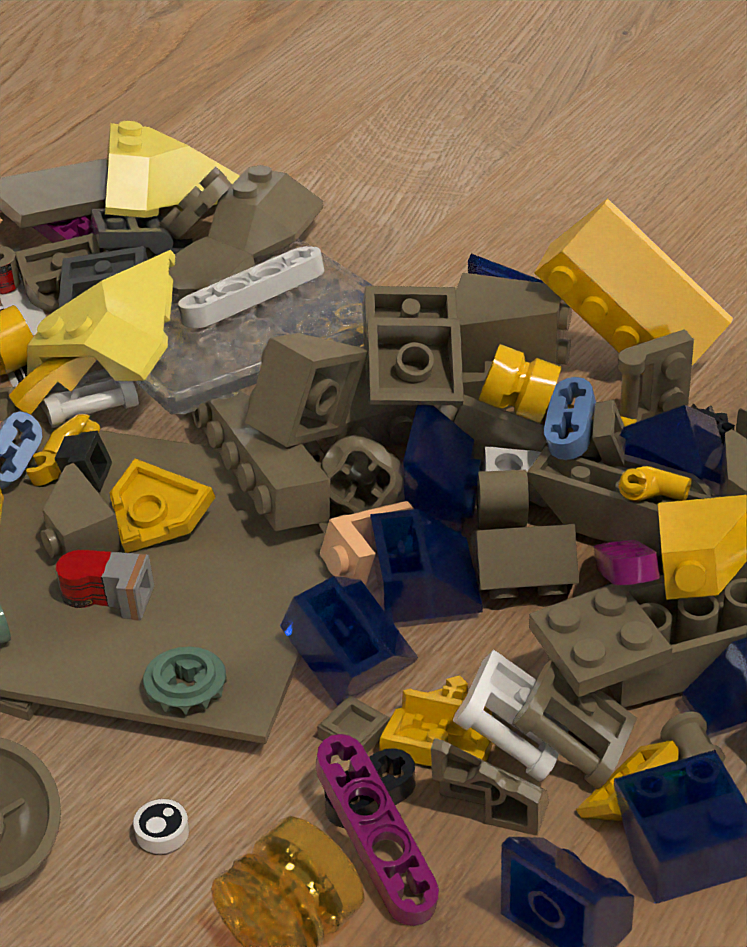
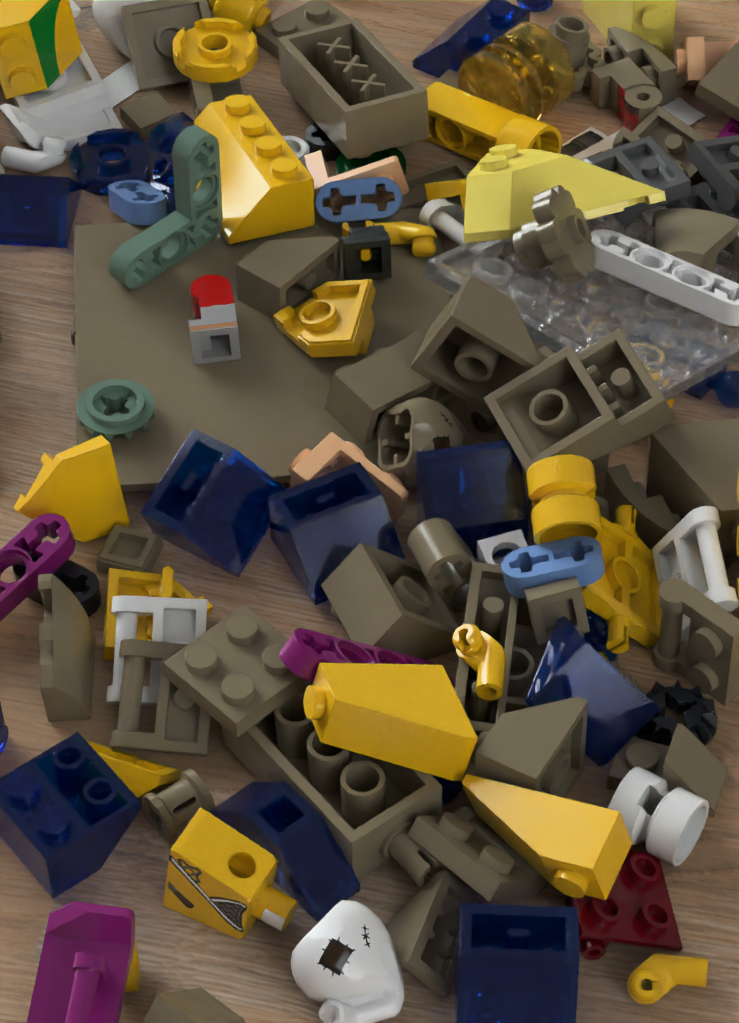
camera: 70 degrees right, 5 degrees up
(200, 311) = (556, 236): none -> dark tan plant
(289, 729) = (81, 488): none -> yellow slope
(602, 376) = (681, 558): none -> white plate

